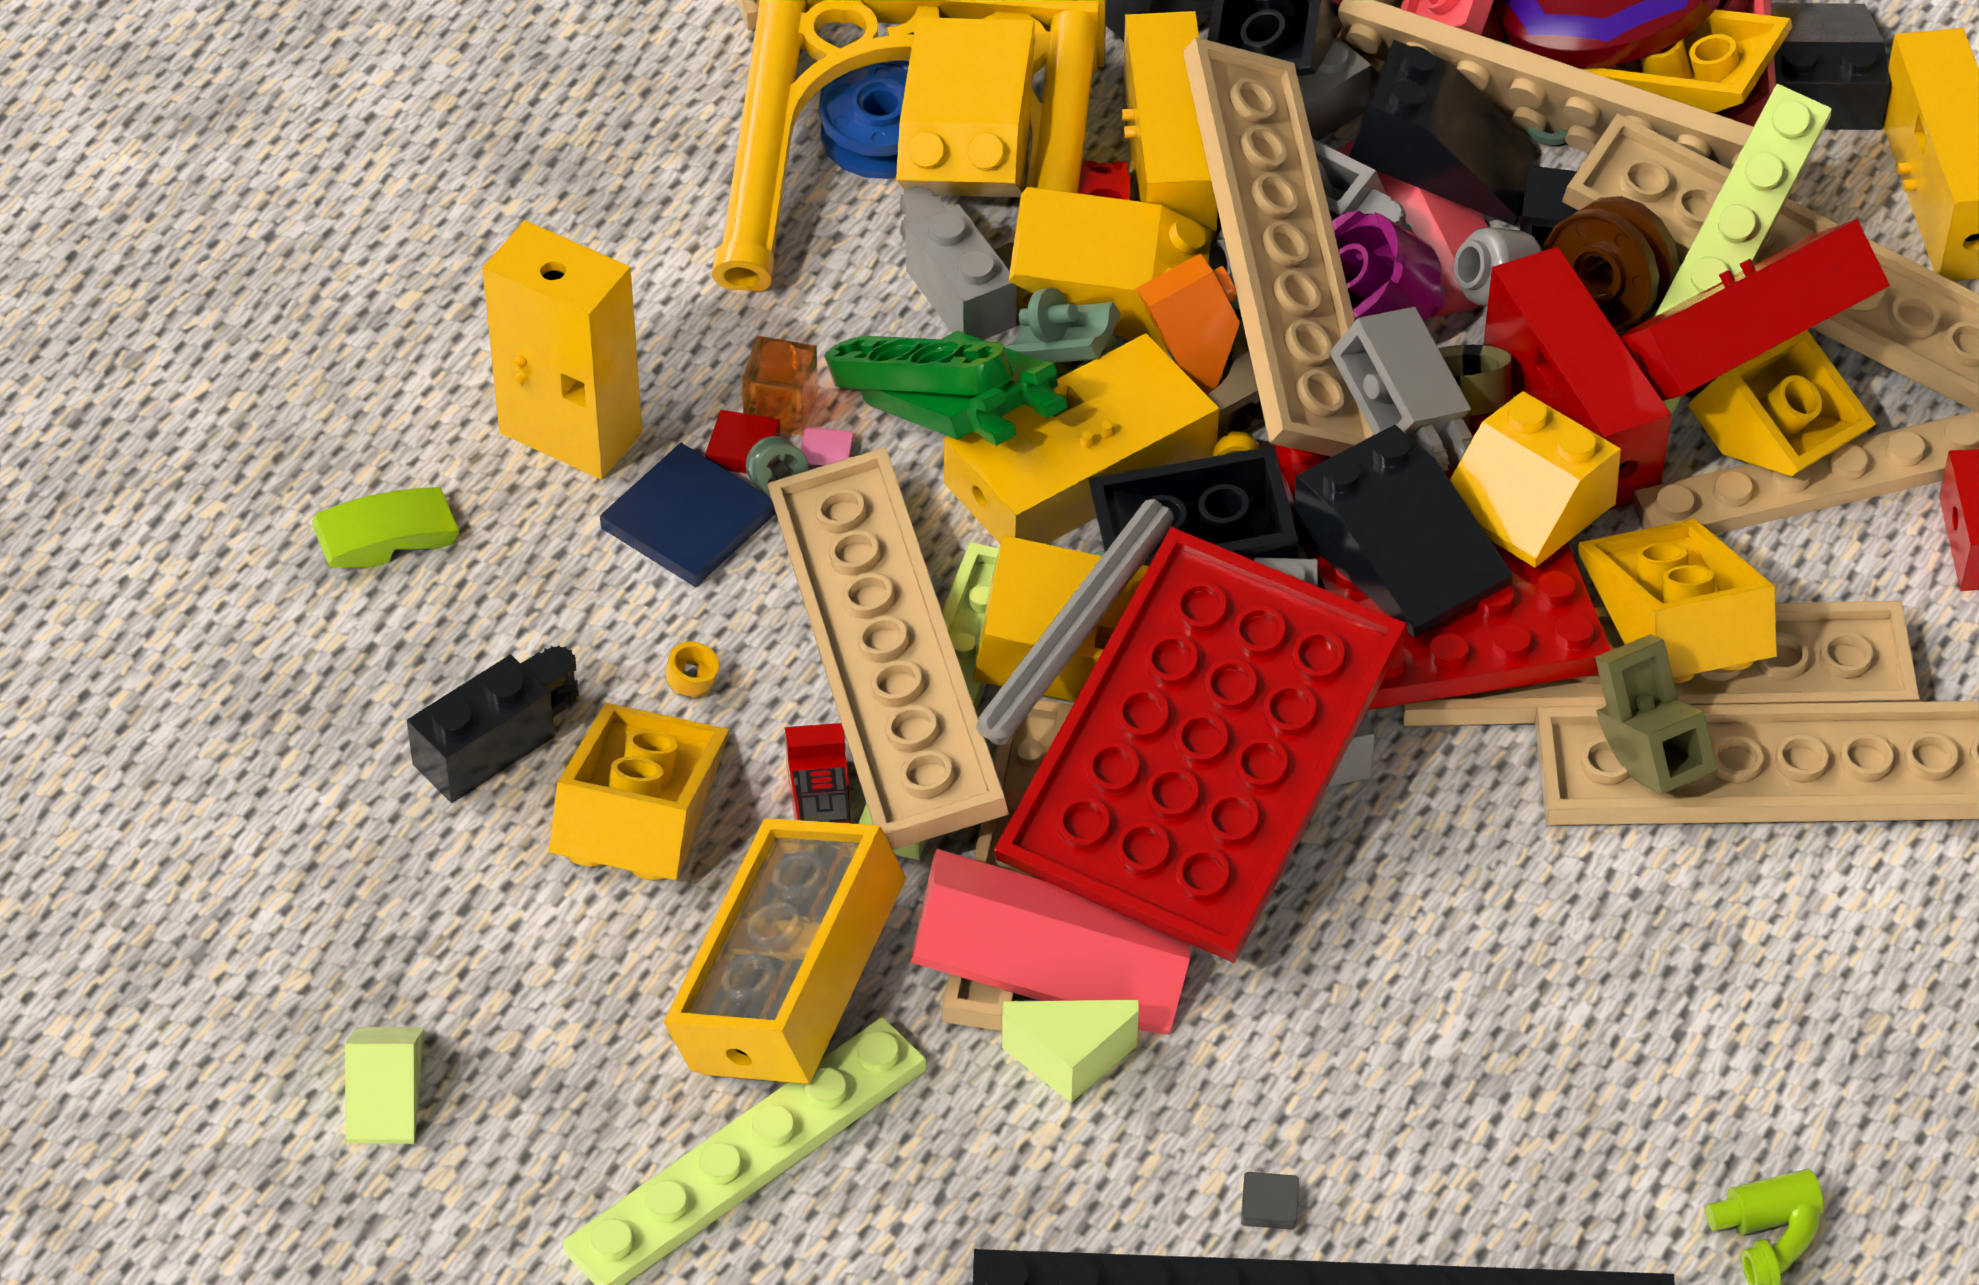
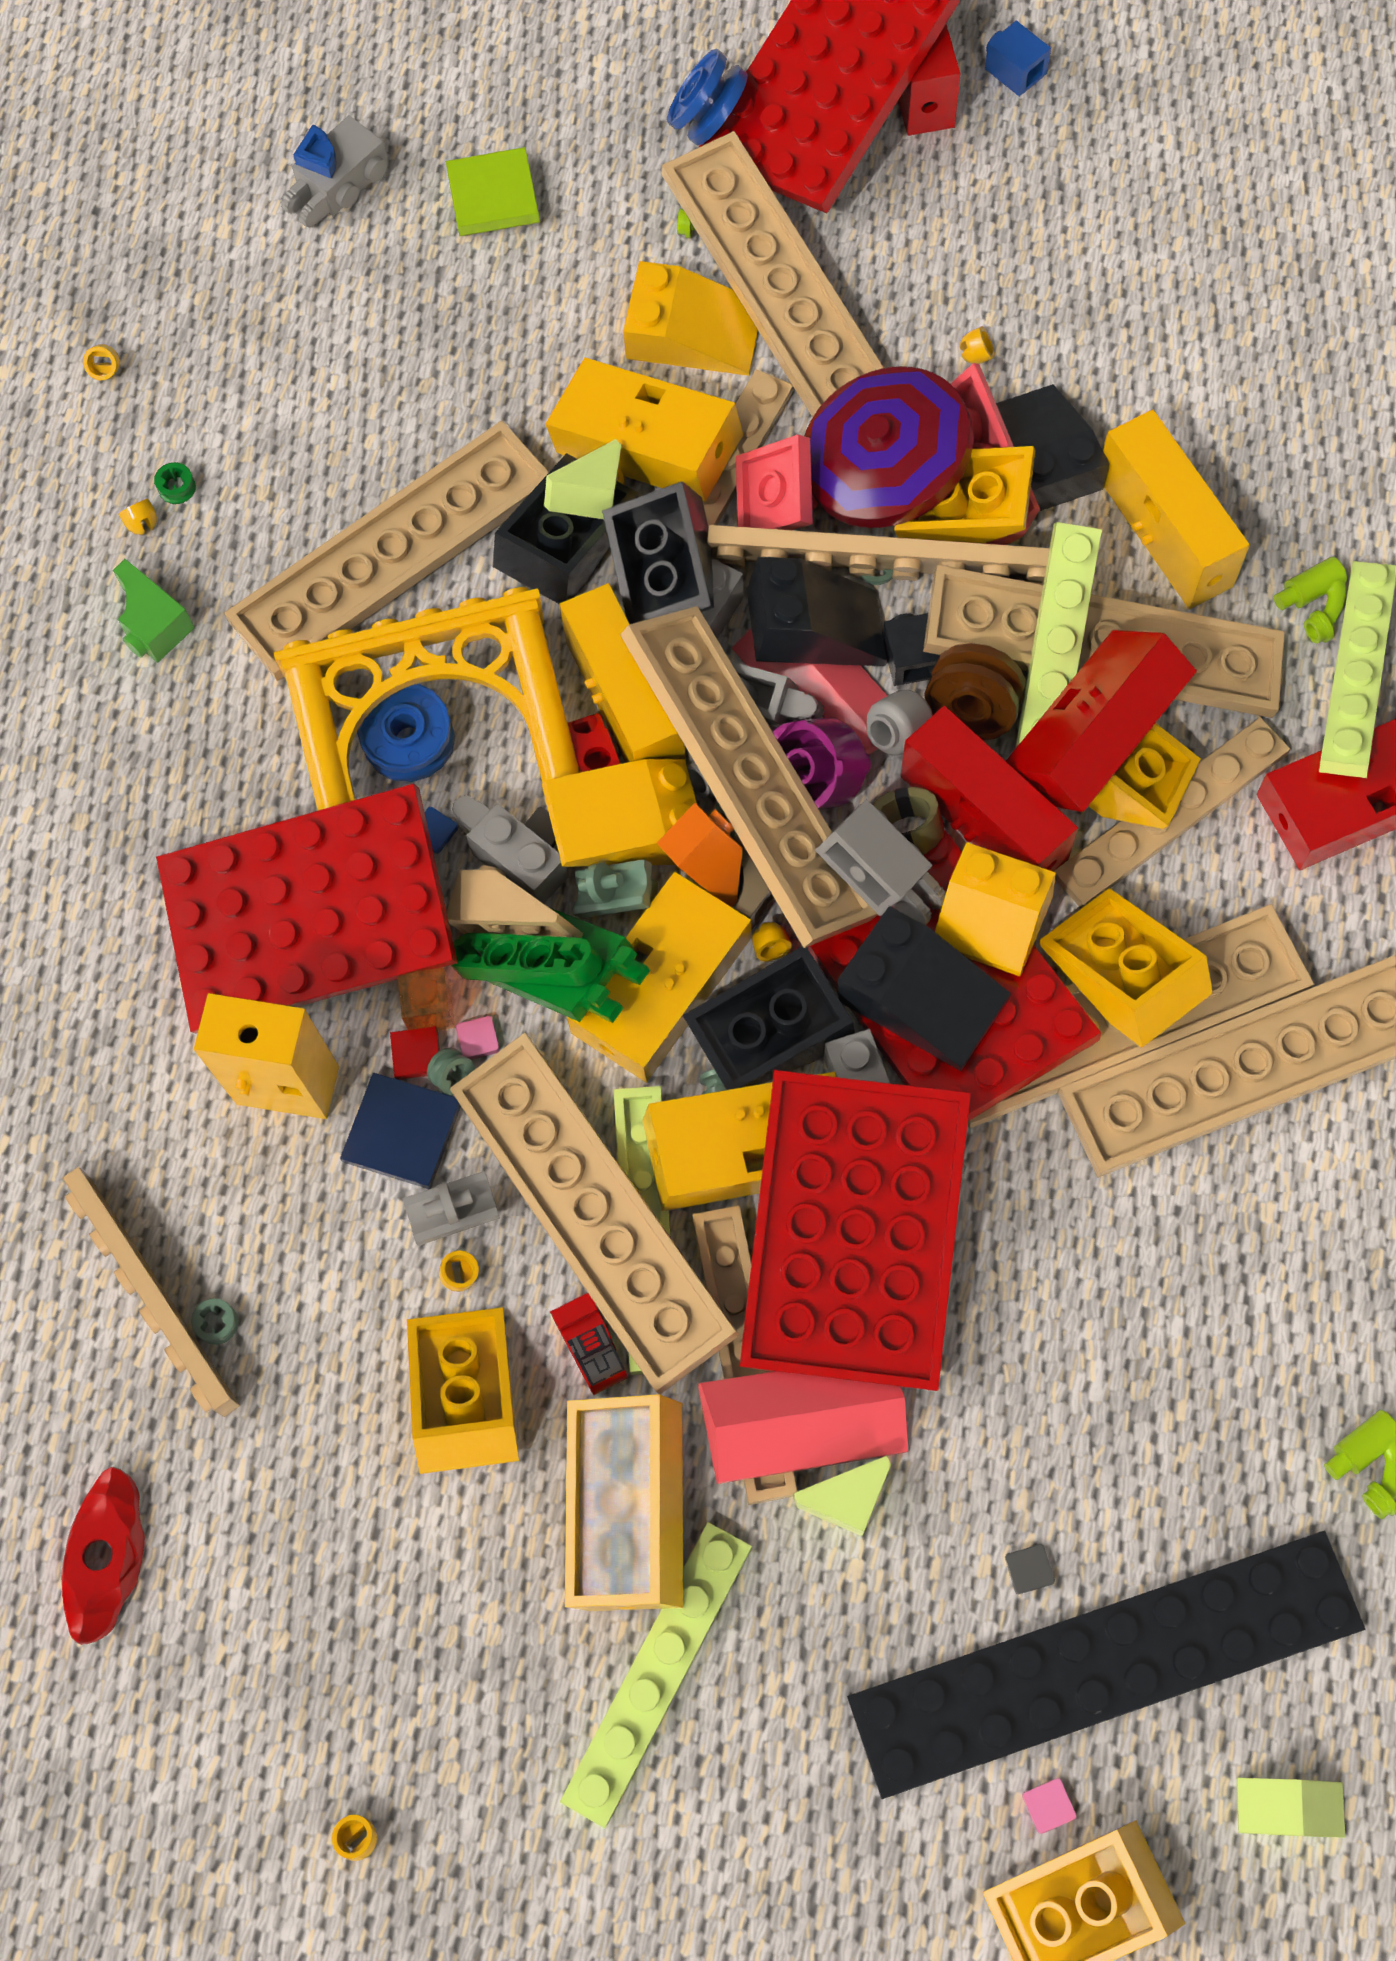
camera: 15 degrees left, 20 degrees up
(100, 854) = (96, 1596): none -> red piece
(295, 1195) = (348, 1831): none -> yellow hinge
(310, 594) = (159, 1310): none -> tan plate
(367, 649) = (199, 1324): none -> sand green bush
(373, 526) = (188, 1223): lime slope -> none
(382, 1084) = (377, 1709): yellowish green slope -> none
(491, 720) = (335, 1374): black hinge -> none
(712, 598) = (451, 1208): none -> light grey hips
(715, 231) = (308, 905): none -> red plate
(869, 230) = (440, 828): none -> blue piece
(913, 304) = (493, 904): none -> tan slope
(967, 107) = (473, 720): yellow slope -> none
(1074, 622) = (730, 1164): light grey axle -> none
(1645, 724) = (1152, 1089): olive brick -> none

